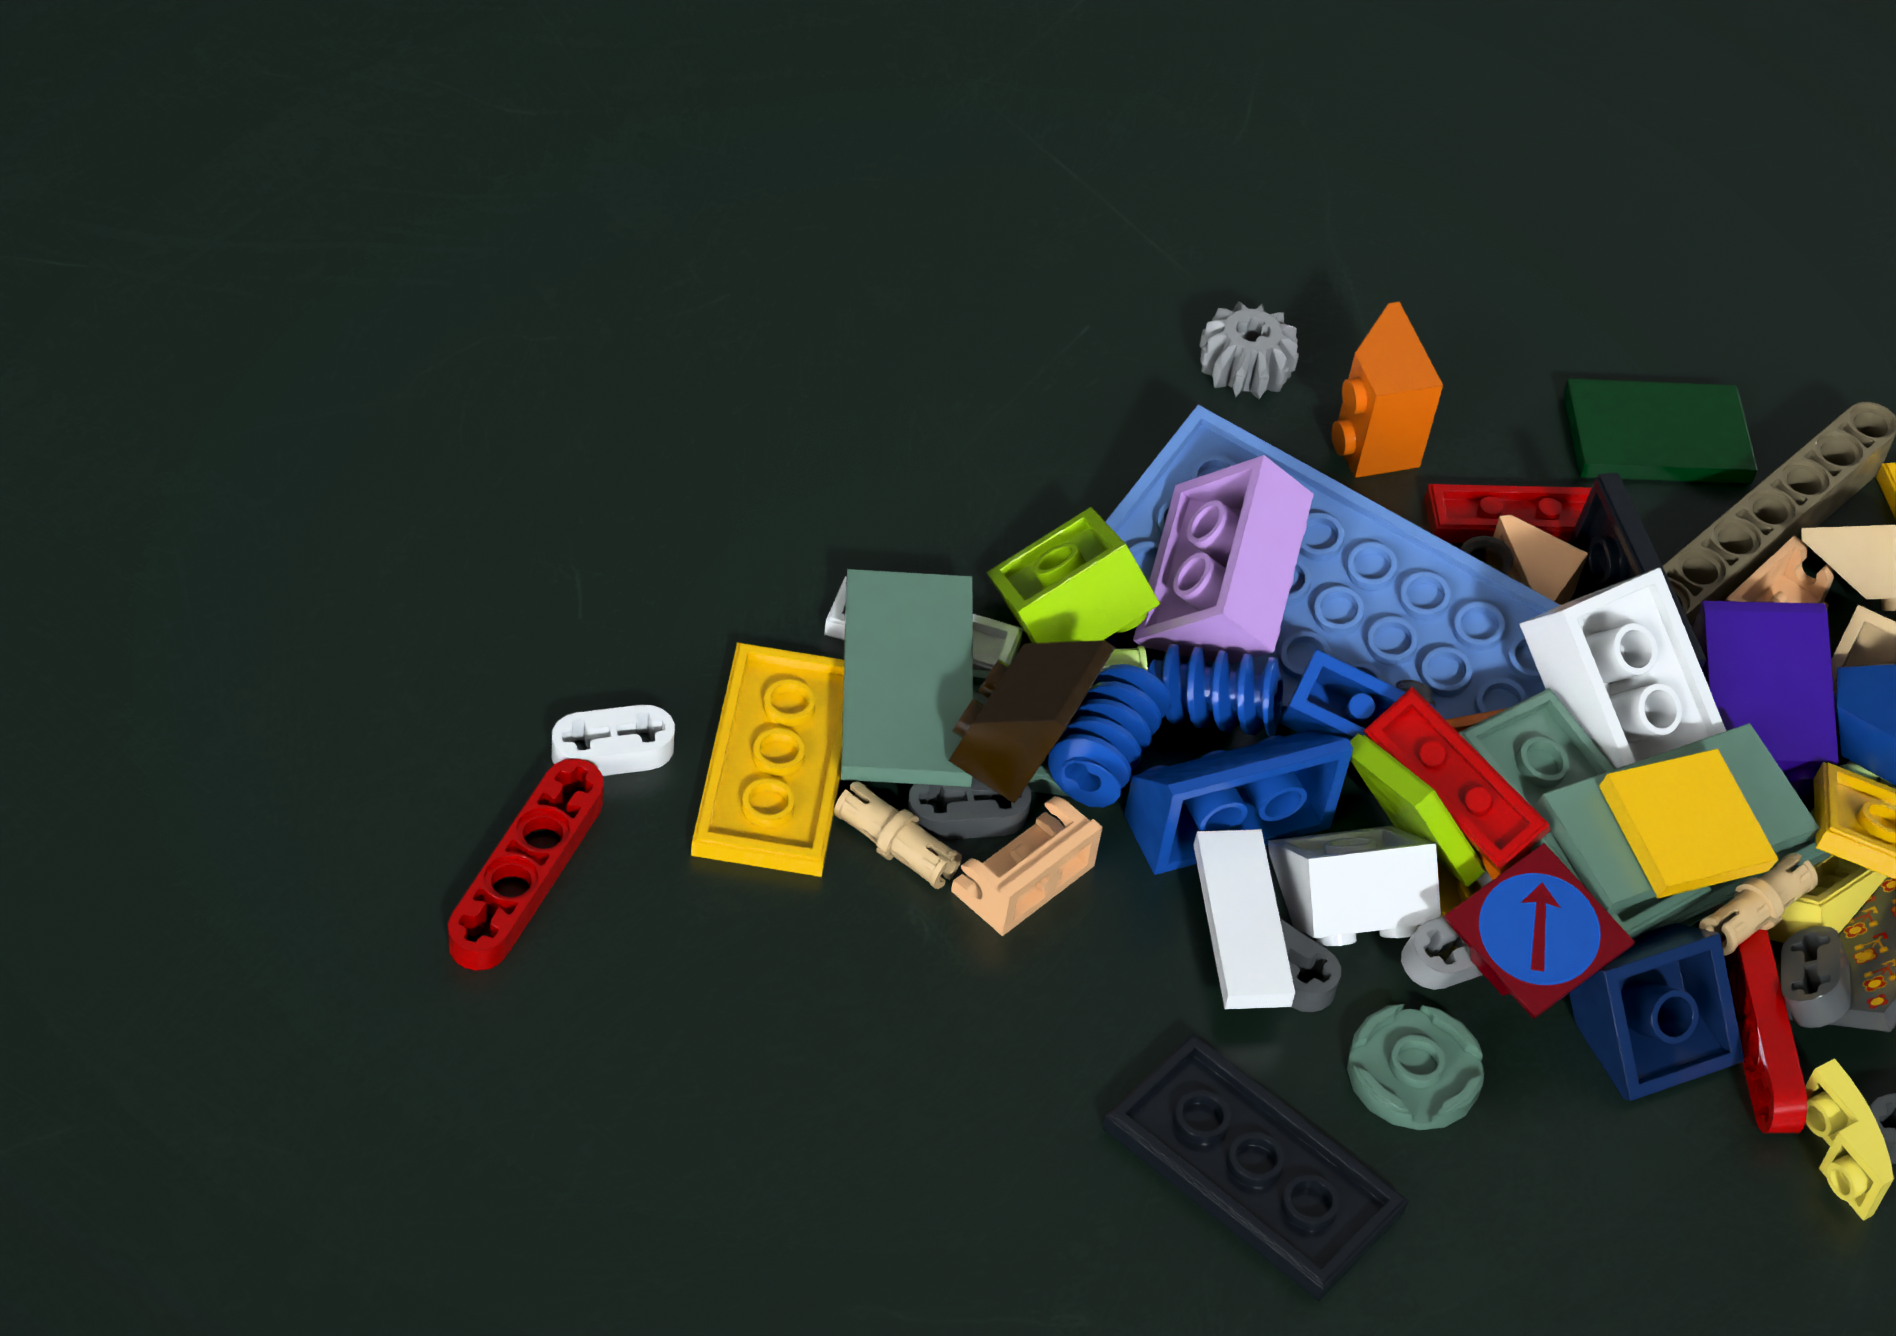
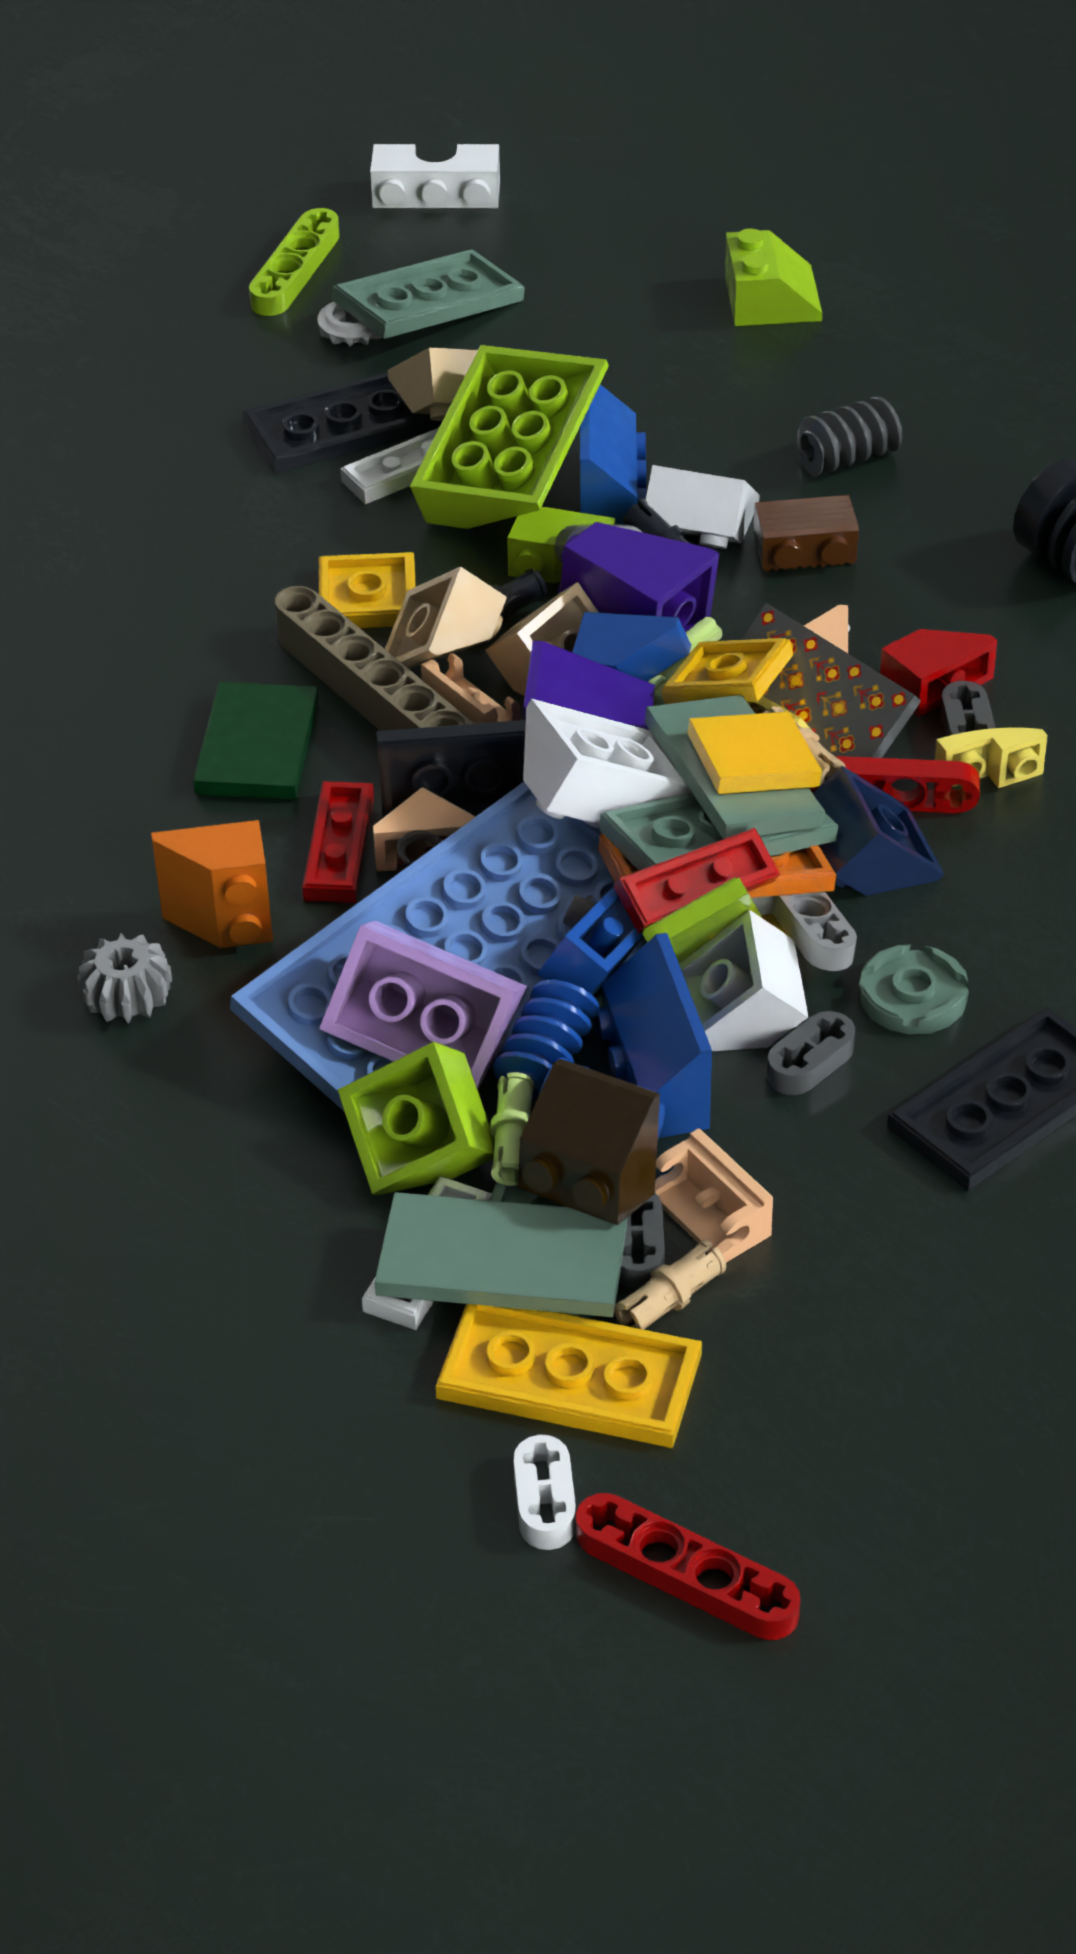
camera: 75 degrees left, 5 degrees down
(1243, 919) = (791, 1057): white tile -> none
(1537, 931) = (839, 865): piece -> none
(1815, 976) = (860, 725): dark grey beam -> none

